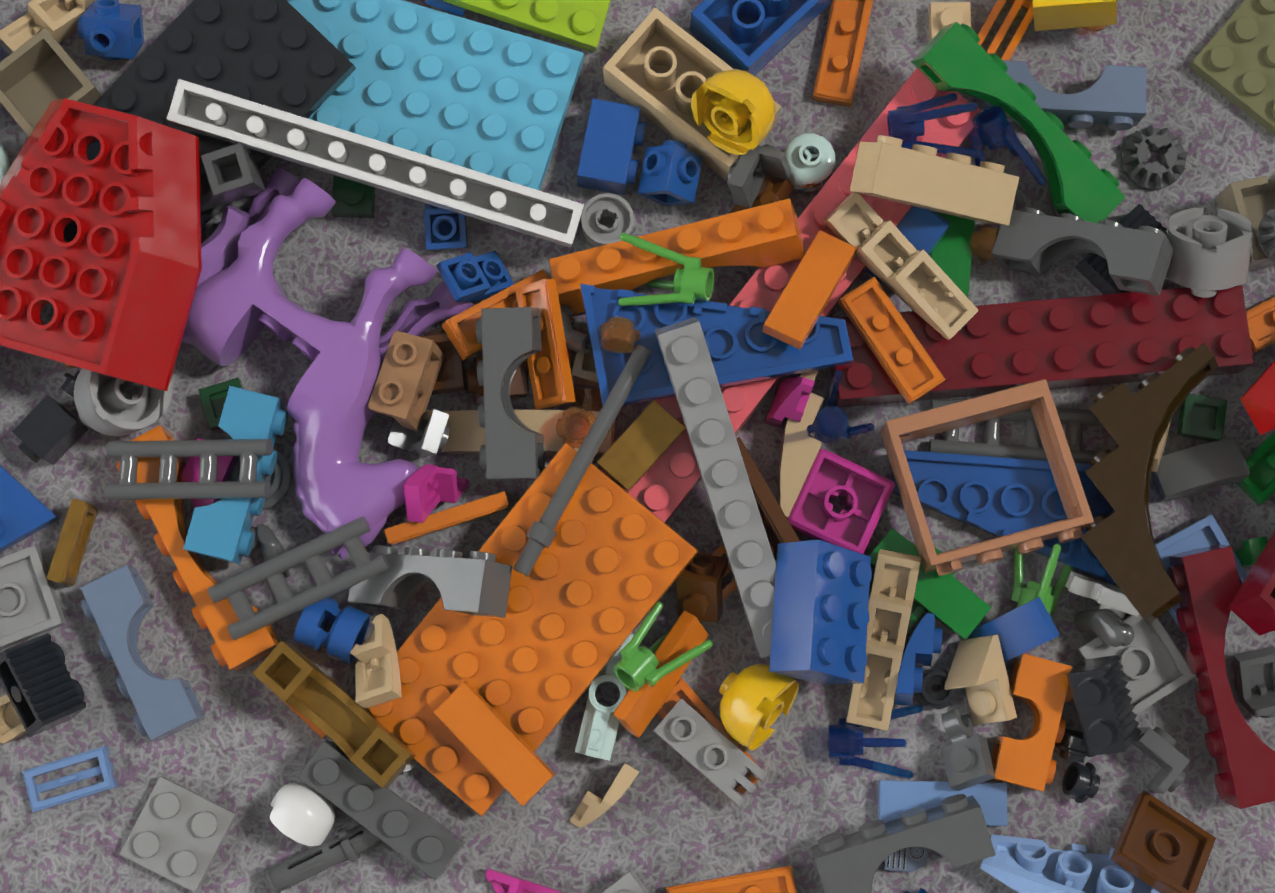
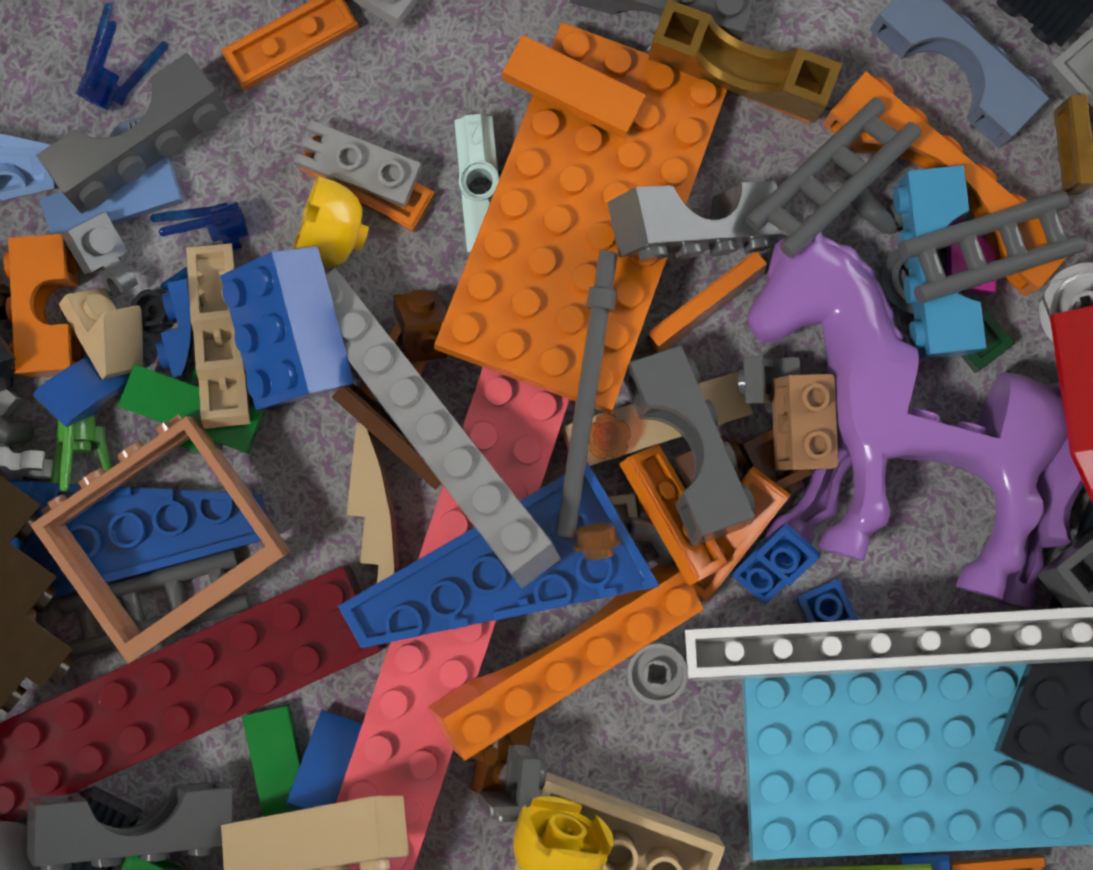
camera: 165 degrees right, 5 degrees up
(347, 629) = (764, 148): blue wheel -> none
(352, 199) = (936, 601): dark green plate -> none
(378, 666) = (719, 124): tan slope -> none
(429, 487) = (738, 322): dark pink slope -> none
(588, 399) = (610, 477): clear orange plate -> none
(594, 806) = (453, 76): tan slope -> none
(609, 147) = (685, 762): blue brick -> none
(640, 664) = (457, 214): bright green plant -> none
(640, 707) = (432, 221): orange tile -> none
(641, 446) = (532, 436): pearl gold tile -> none
(670, 174) = (609, 755): blue brick -> none
(688, 284) = (540, 629): bright green plant -> none
(789, 400) = (396, 546): dark pink slope -> none
(809, 174) = (462, 838): light aqua head -> none
(809, 290) = (410, 667): orange tile -> none
(832, 421) = (343, 544): clear blue plant -> none
(864, 493) = (288, 438): dark pink brick -> none
(891, 340) = (305, 646): orange tile -> none
(901, 266) = (321, 733): tan slope -> none
(983, 242) = (245, 800): clear orange plate -> none

